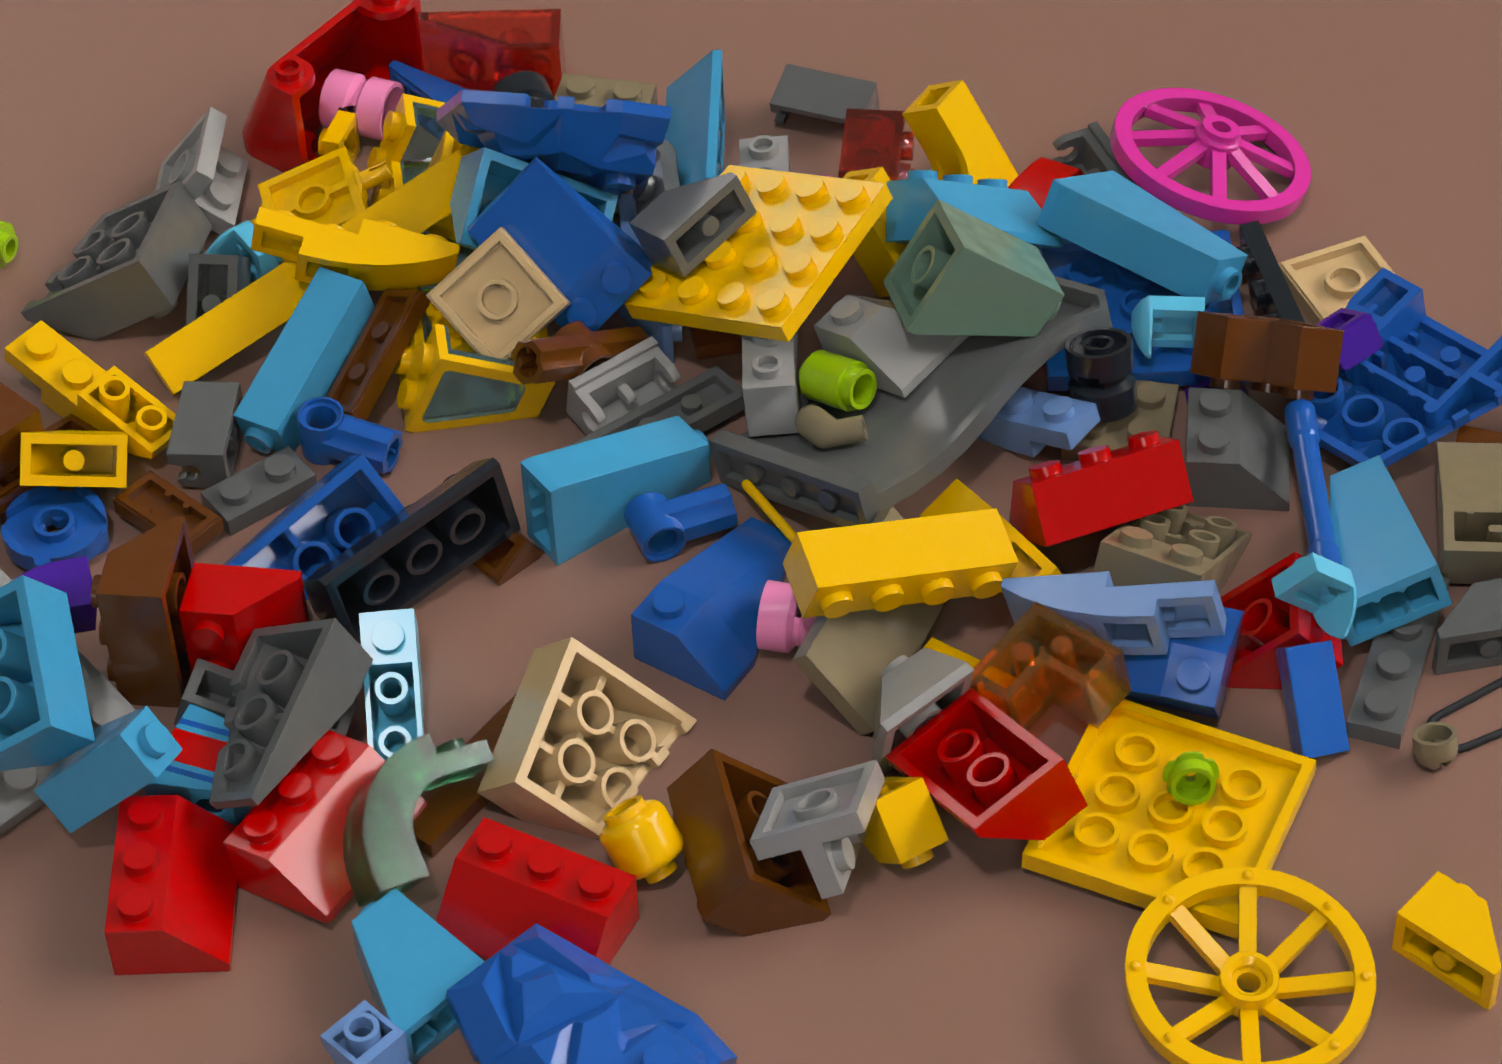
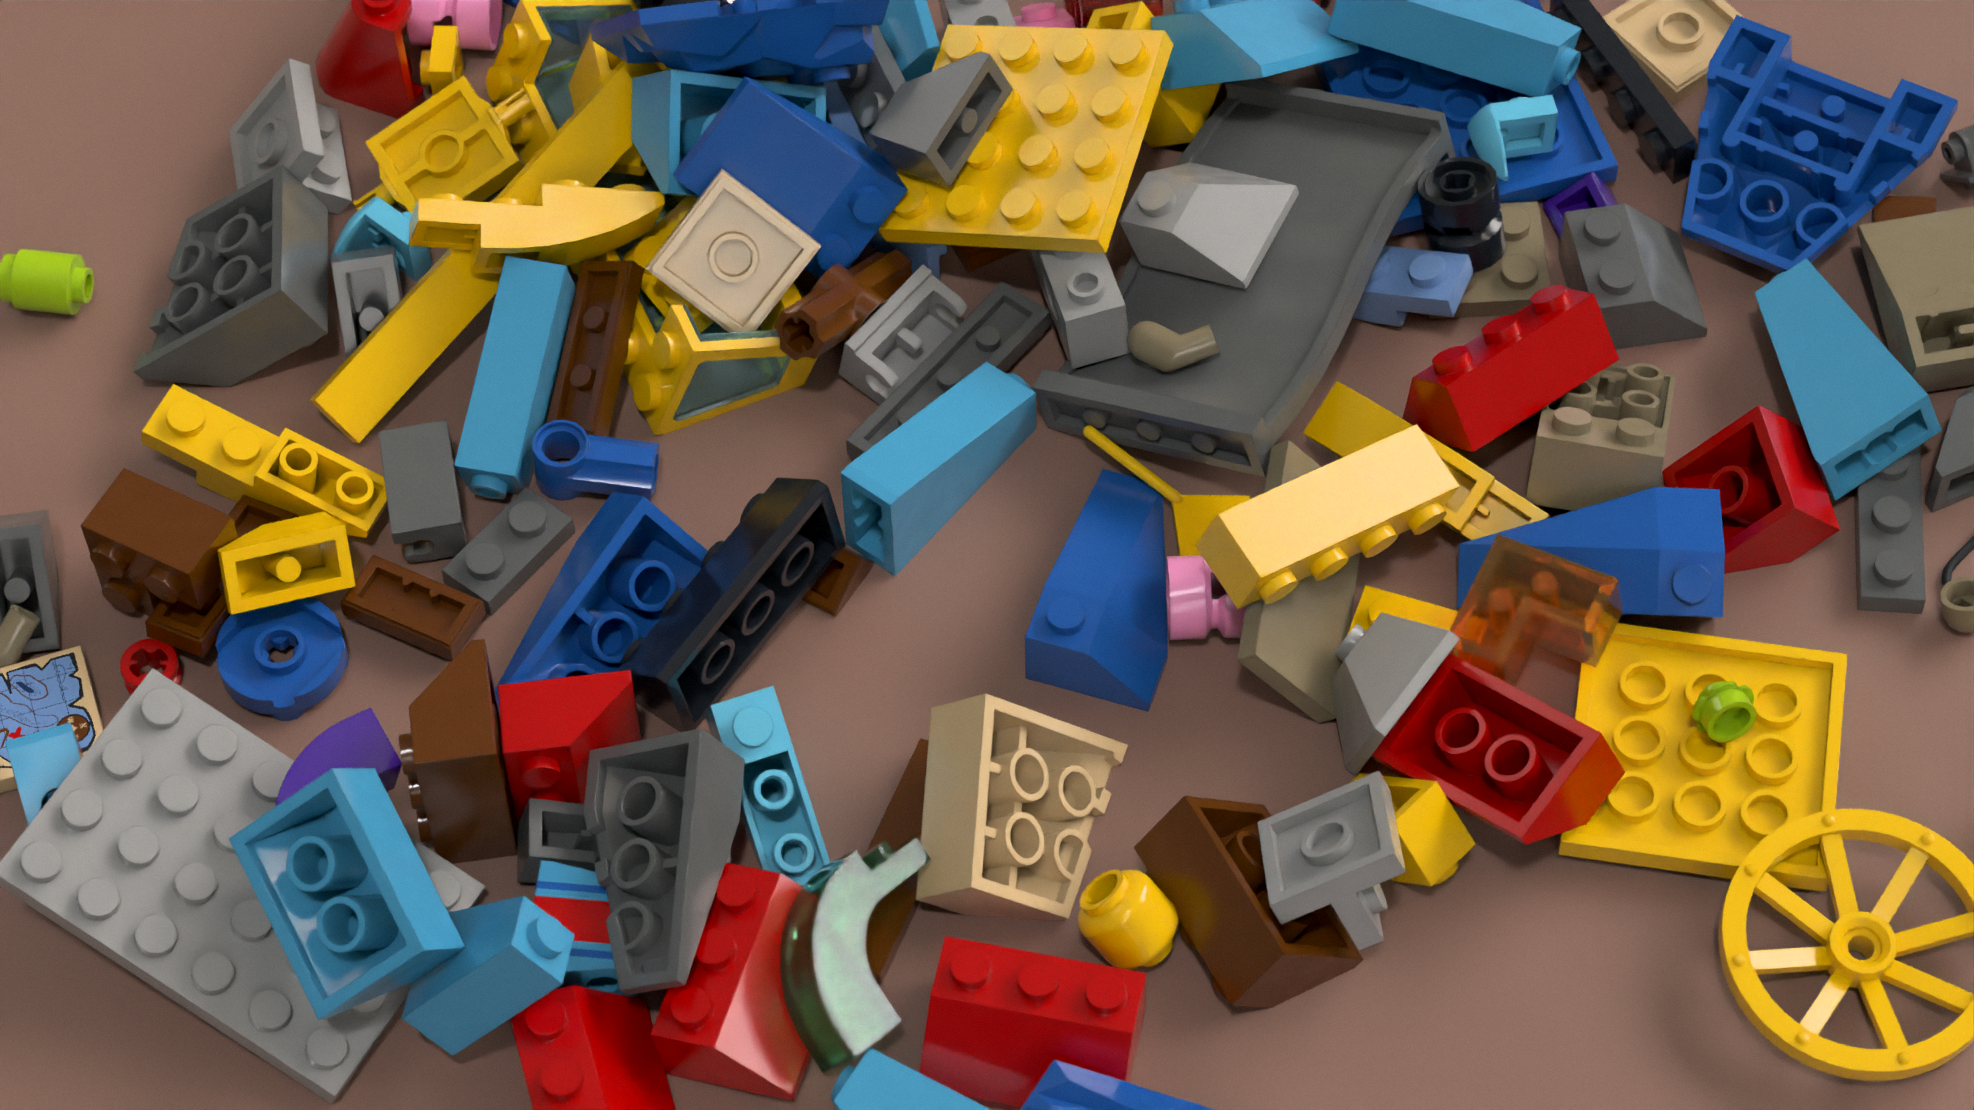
camera: 15 degrees left, 10 degrees up
(666, 525) = (1012, 501): blue piece -> none
(837, 381) = (1162, 282): lime brick -> none
(971, 280) = (1292, 133): sand green slope -> none
(1129, 617) = (1602, 533): medium blue slope -> none
(1267, 353) = (1645, 152): reddish brown brick -> none
(1305, 440) = (1787, 398): blue piece -> none
(1312, 699) = (1822, 581): blue slope -> none
(1321, 589) = (1812, 452): medium azure plate -> none
(1359, 338) = (1721, 113): dark purple slope -> none

